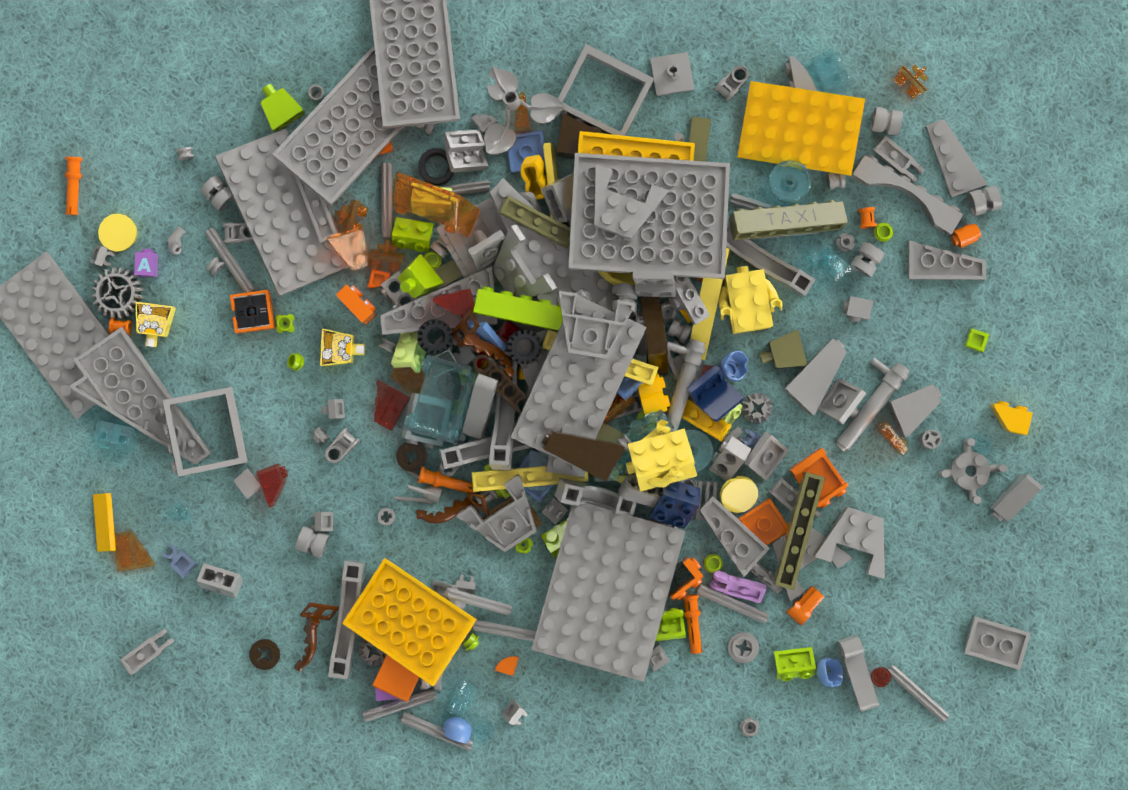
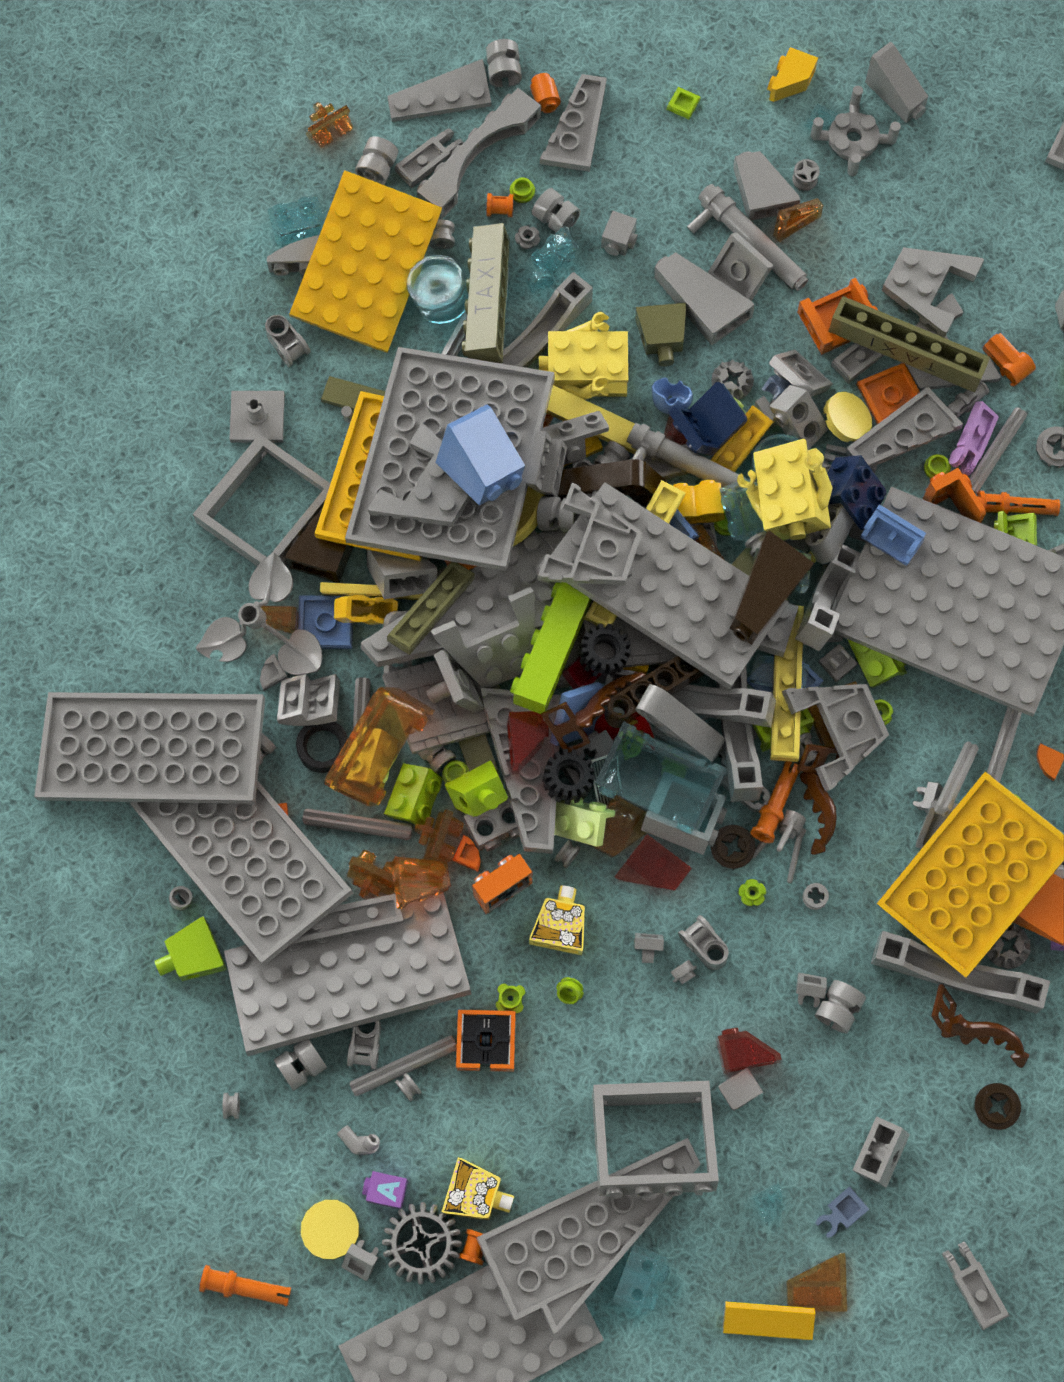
camera: 85 degrees left, 15 degrees down
(387, 473) = (747, 898): none -> lime plate
(641, 236) = (480, 456): none -> slope
(643, 535) = (893, 535): none -> medium blue hinge

